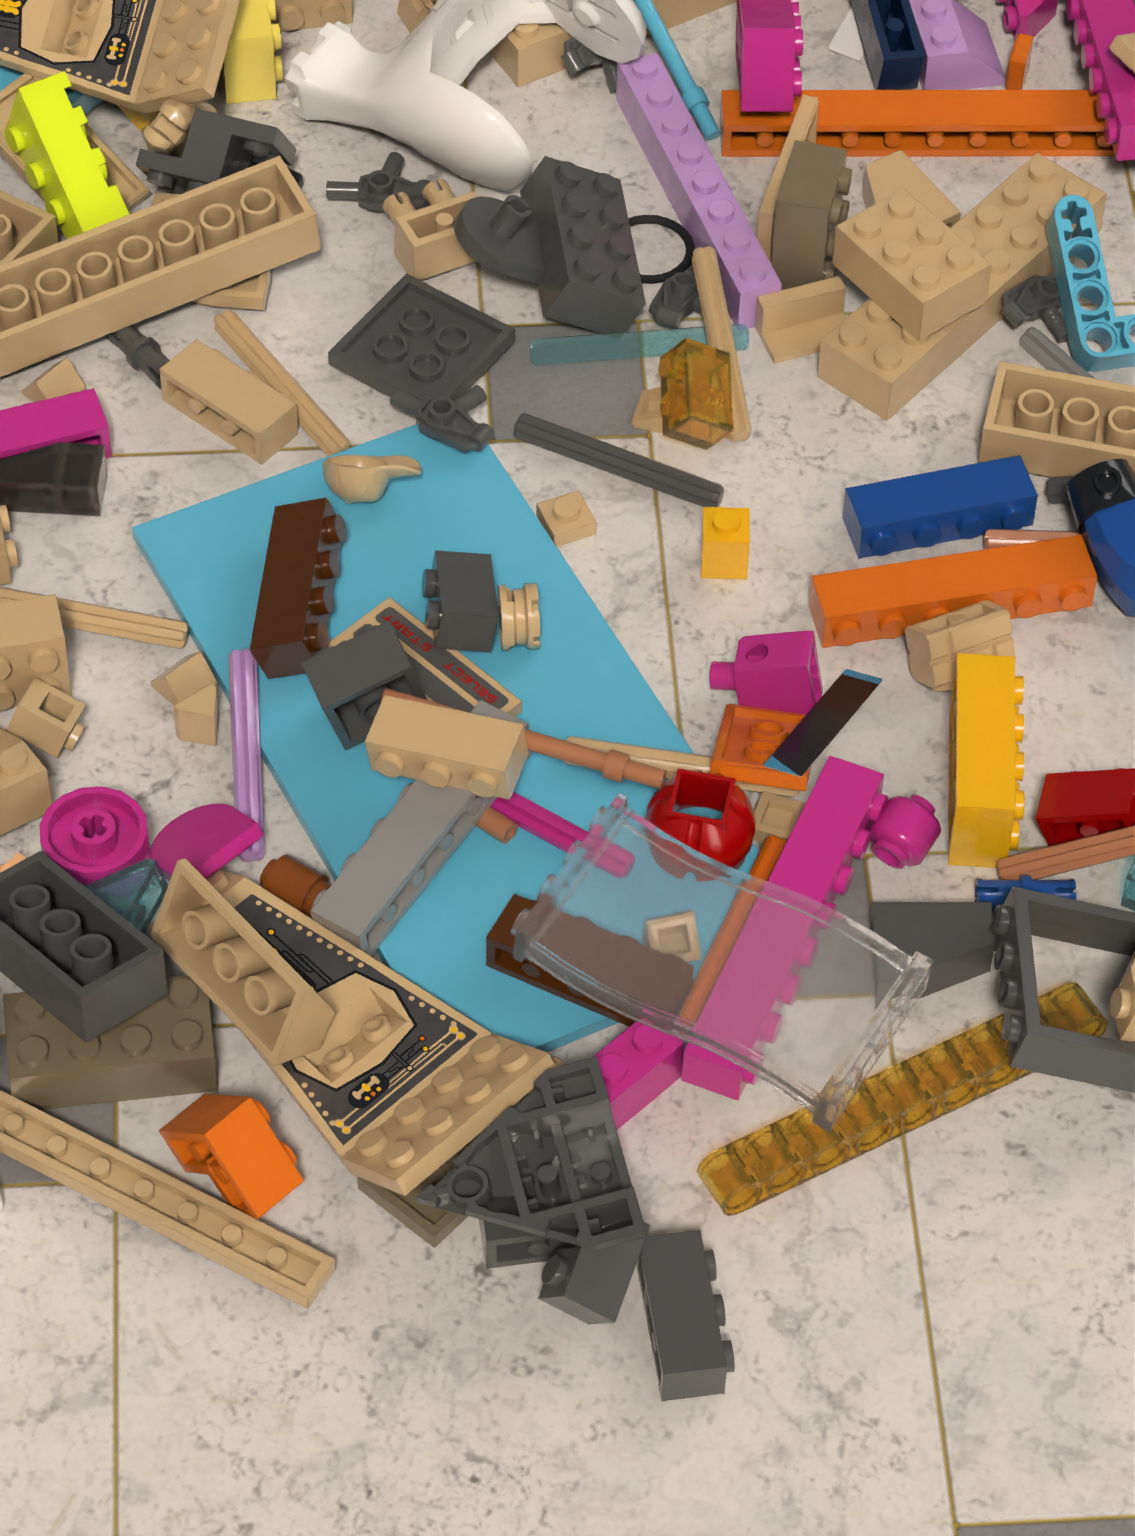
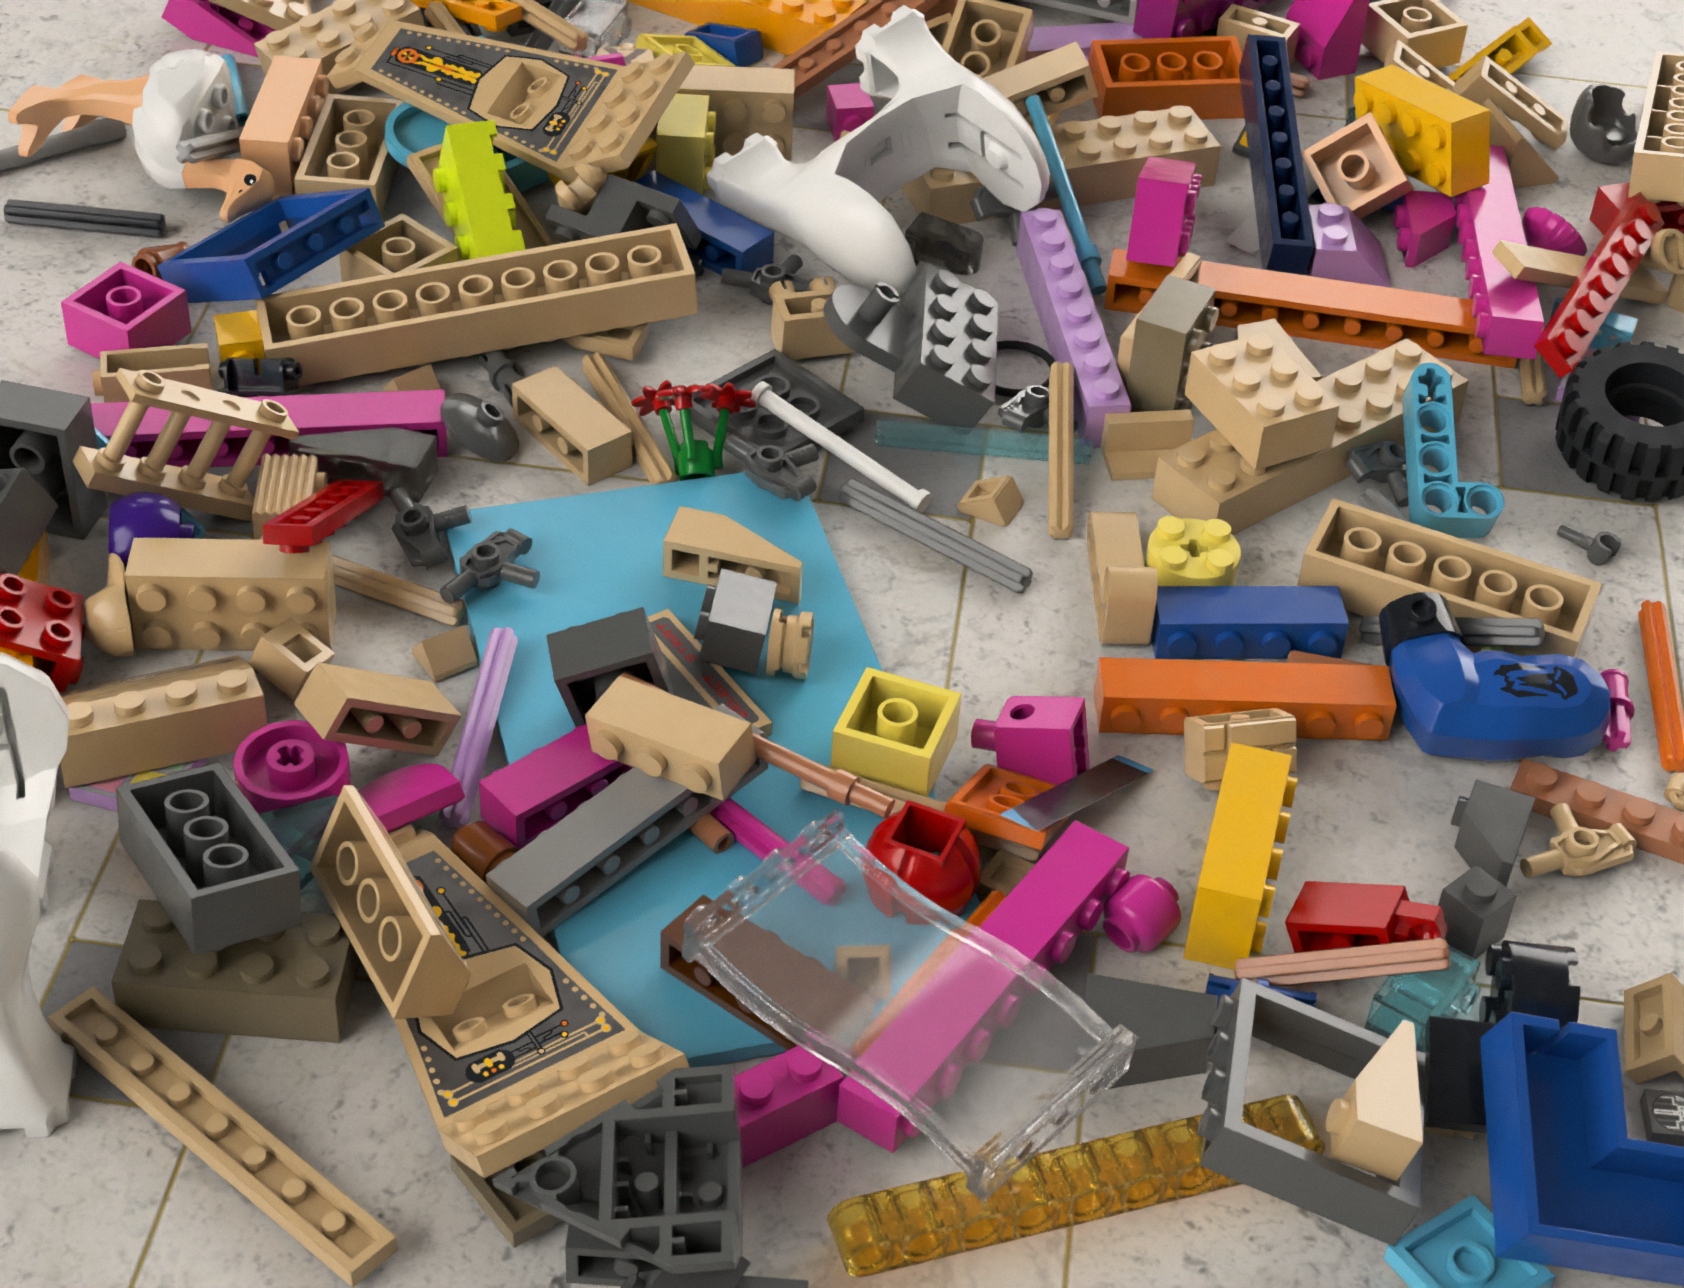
camera: 10 degrees right, 10 degrees down
(35, 562) = (321, 514): none -> red plate
(116, 549) = (419, 528): none -> dark grey piece
(139, 421) = (479, 427): none -> dark grey dish
(154, 761) = (377, 709): none -> tan brick
(198, 717) = (450, 677): tan slope -> none
(203, 579) = (491, 563): none -> dark grey piece
(237, 1150) = (326, 1102): orange brick -> none
(297, 586) = (577, 577): reddish brown brick -> none
(323, 144) = (727, 236): none -> blue brick
(336, 808) = (545, 786): none -> dark pink brick
(364, 420) = (694, 457): none -> plant
(365, 477) = (662, 499): tan piece -> none
(415, 523) = (707, 541): none -> tan slope
(486, 373) = (915, 498): none -> white bar
(544, 109) = (945, 244): none -> clear smoke leg
(566, 518) = (869, 575): tan plate -> none
(643, 693) = (896, 731): none -> light yellow brick
(696, 393) = (1023, 484): clear yellow brick -> none
(725, 542) = (1020, 618): yellow brick -> none
(816, 498) = (1120, 582): none -> tan beam
(873, 447) = (1193, 552): none -> light yellow brick
(1019, 62) = (1406, 269): orange tile -> none

